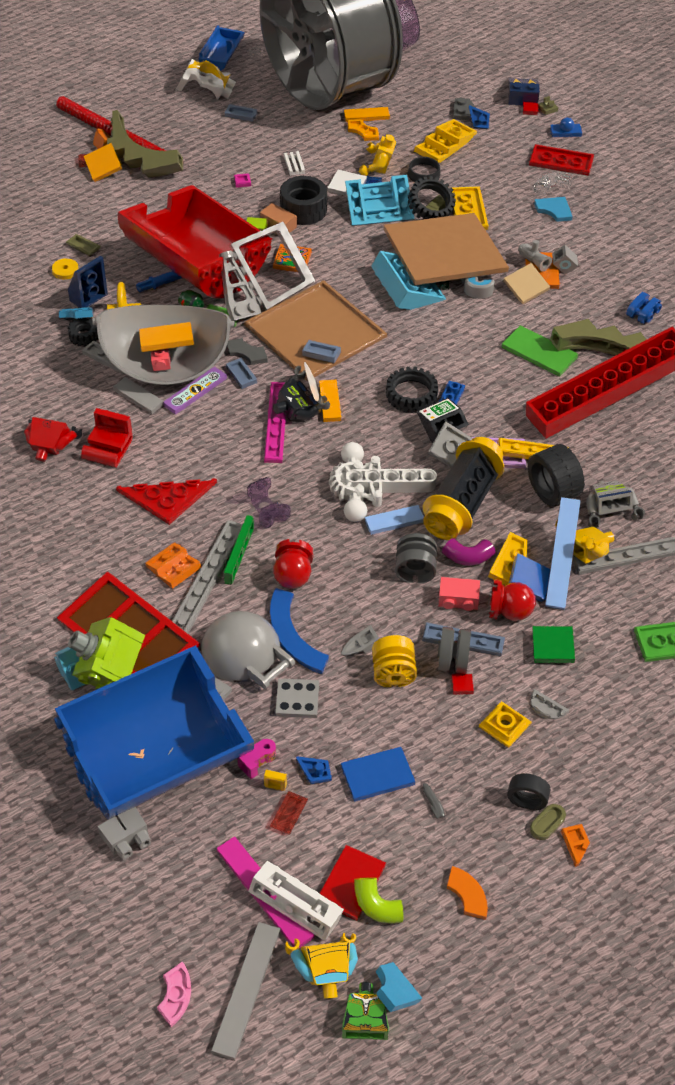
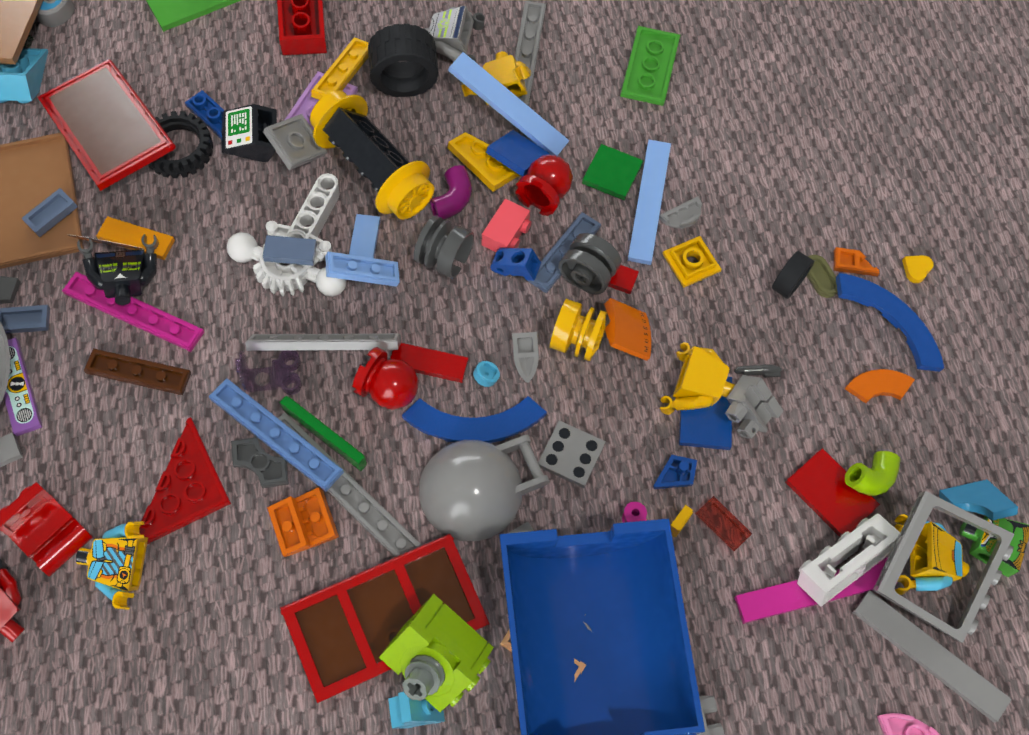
camera: 70 degrees left, 15 degrees up
(101, 481) = (116, 562): none -> torso
(201, 533) = (270, 469): none -> dark grey tile
(224, 526) = (276, 434): none -> medium blue tile
(235, 442) = (137, 371): none -> reddish brown tile
(305, 523) = (290, 342): none -> light grey tile
(317, 925) = (904, 545): none -> light grey windscreen
(325, 589) = (432, 362): none -> red tile
(333, 624) = (486, 373): none -> medium azure tile
(360, 474) = (289, 250): none -> sand blue tile
(372, 521) = (362, 269): none -> light blue tile
(392, 797) = (753, 405): none -> light grey hips
(395, 754) = (700, 380): none -> yellow torso
(402, 347) = (106, 124): none -> door
(413, 694) = (628, 329): none -> orange slope
(431, 609) = (516, 262): none -> blue leg
(543, 678) = (649, 202): none -> light blue tile
(544, 886) = (898, 314): none -> blue tile
(601, 894) = (917, 267): none -> yellow tile

